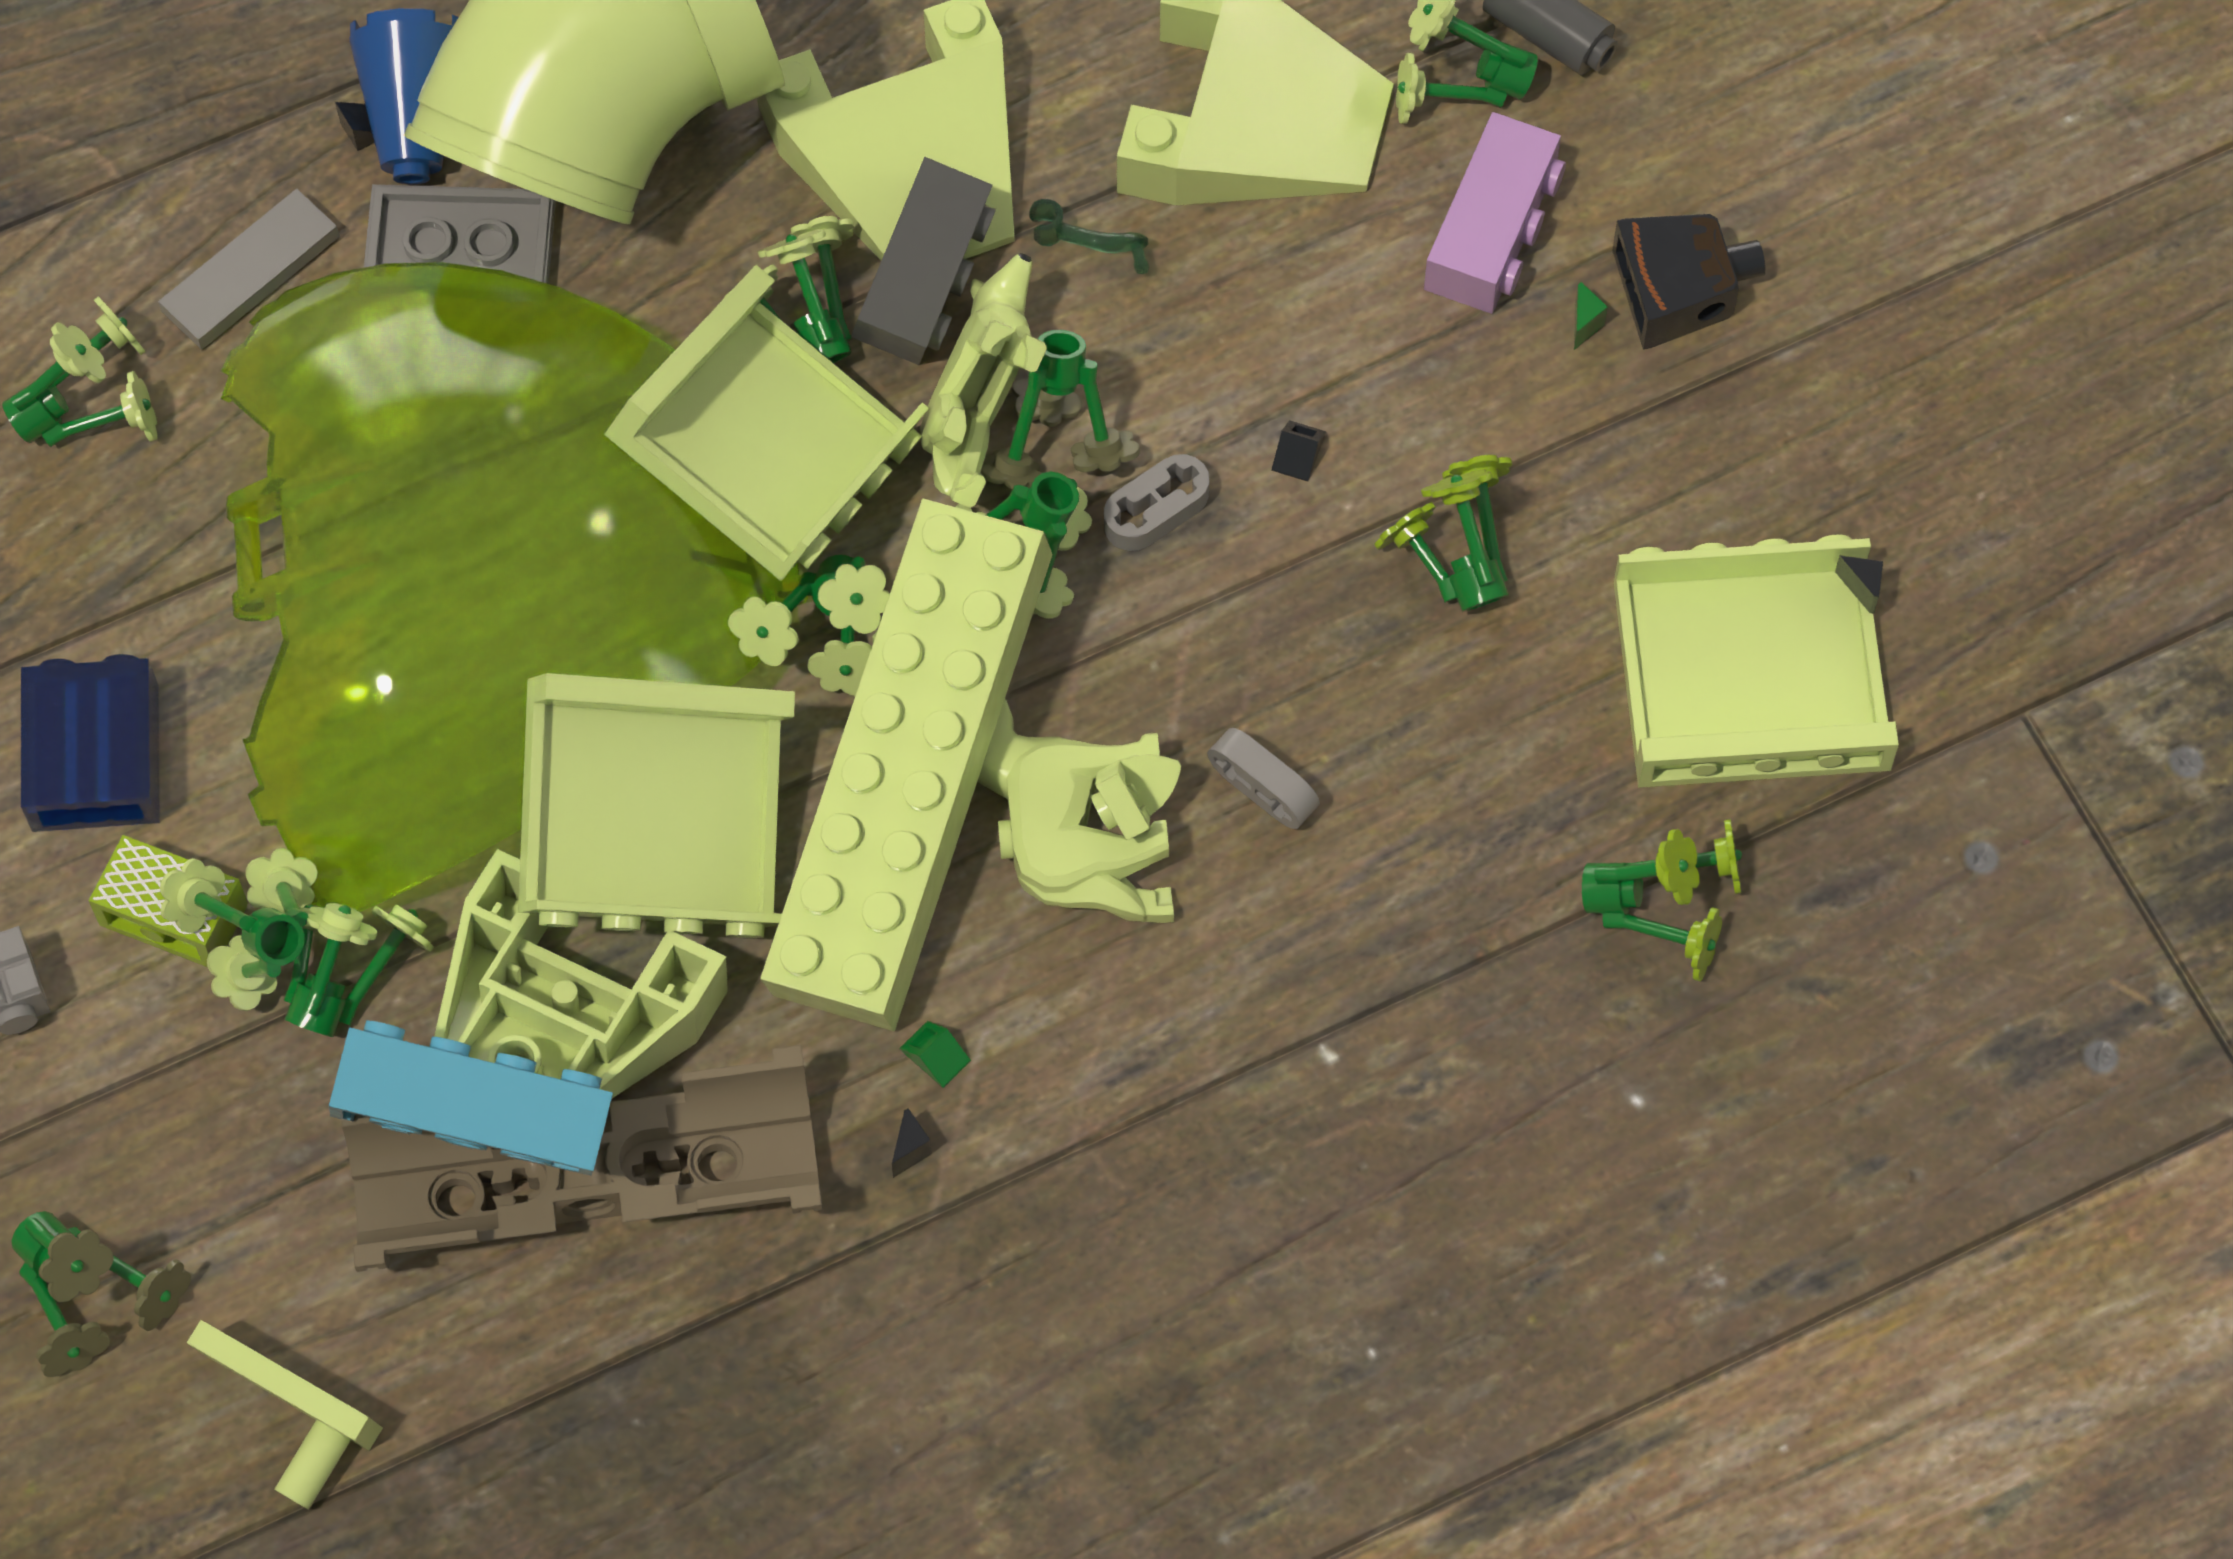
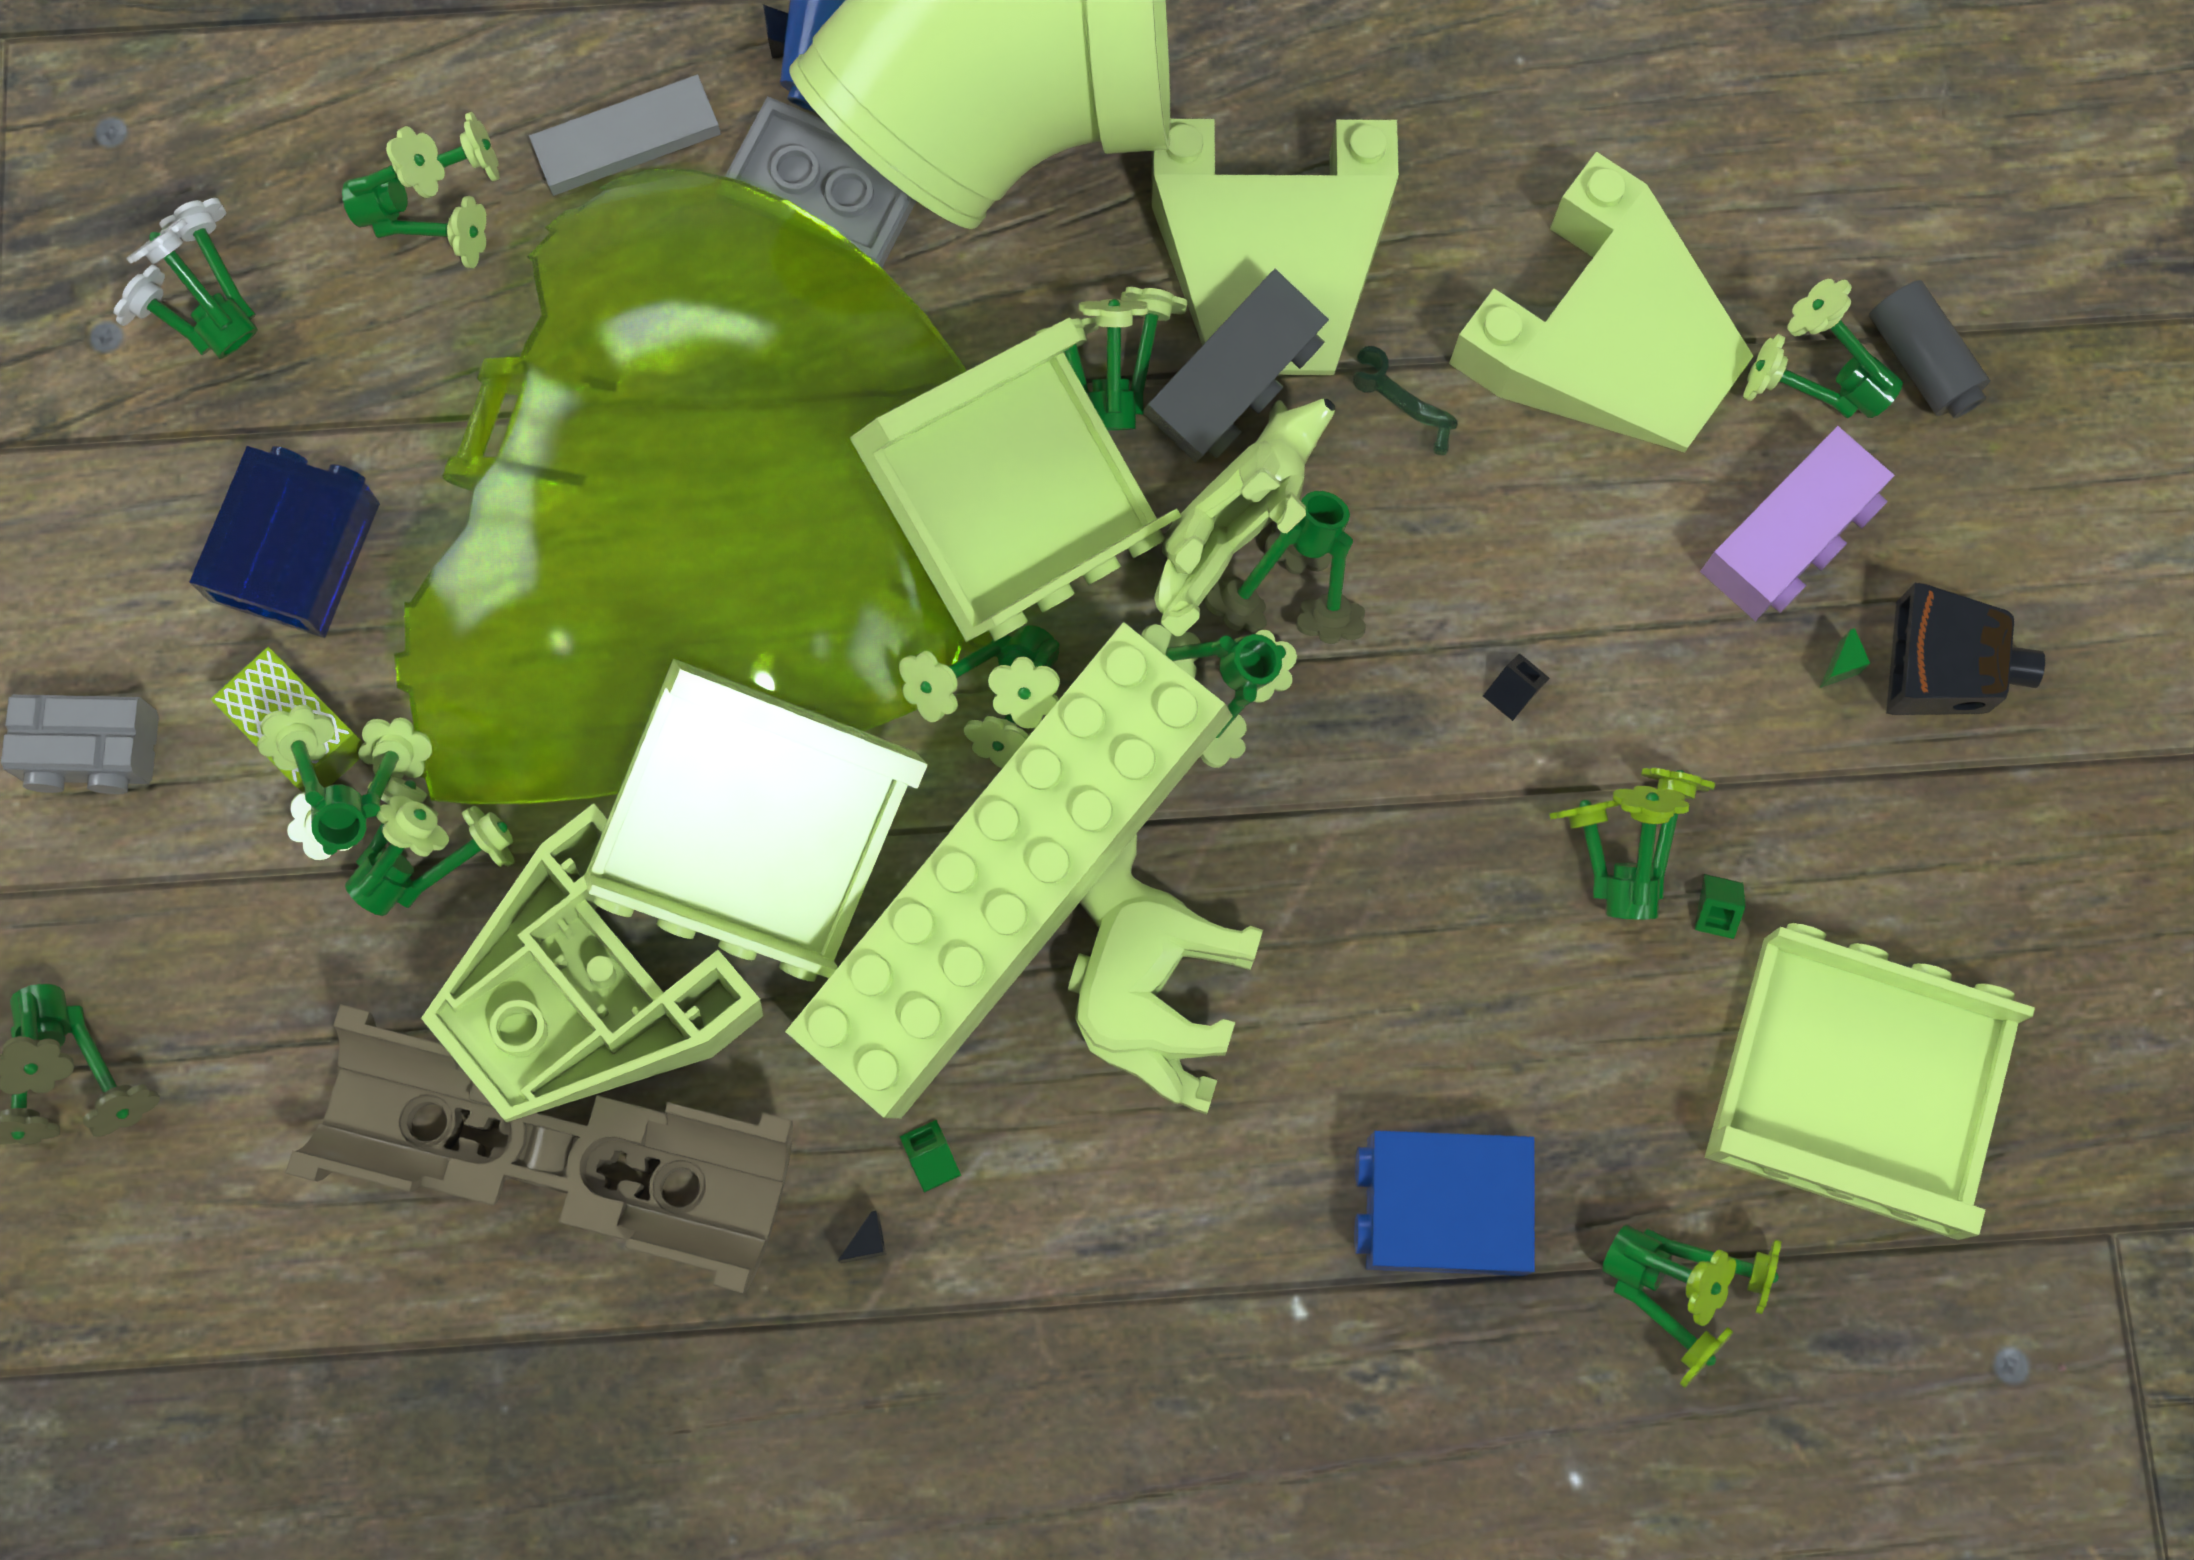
camera: 20 degrees right, 10 degrees up
(334, 1424) = (223, 1294): yellowish green piece -> none
(470, 1099) = (437, 1066): medium azure wedge -> none
(1134, 791) = (1213, 981): yellowish green plate -> none
(1150, 494) = (1357, 674): light grey beam -> none
(1263, 778) = (1348, 1010): light grey beam -> none
(1422, 906) = (1447, 1203): none -> blue brick
(1562, 569) = (1720, 906): none -> green piece
(1862, 579) = (2010, 1043): black piece -> none

